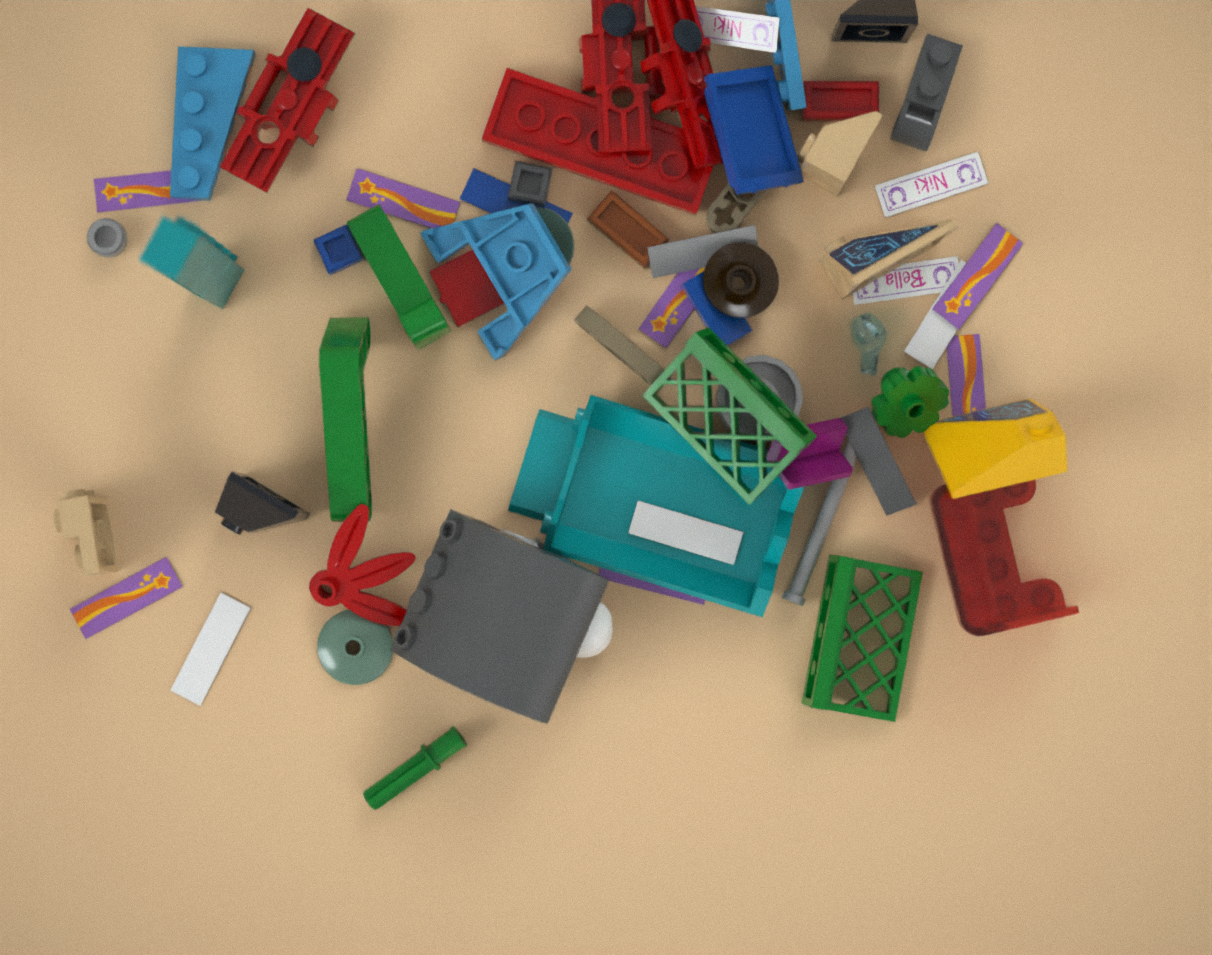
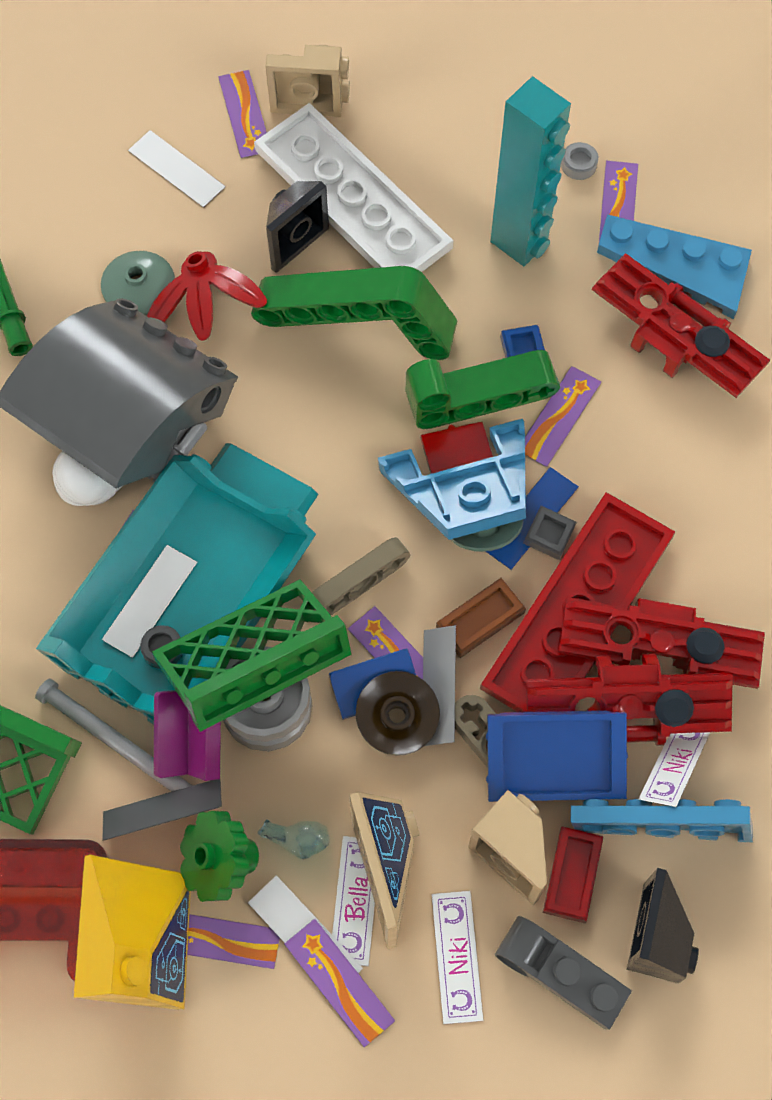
camera: 100 degrees right, 20 degrees down
(213, 441) = (360, 198): none -> white plate
(728, 507) = (156, 638): none -> dark grey tile

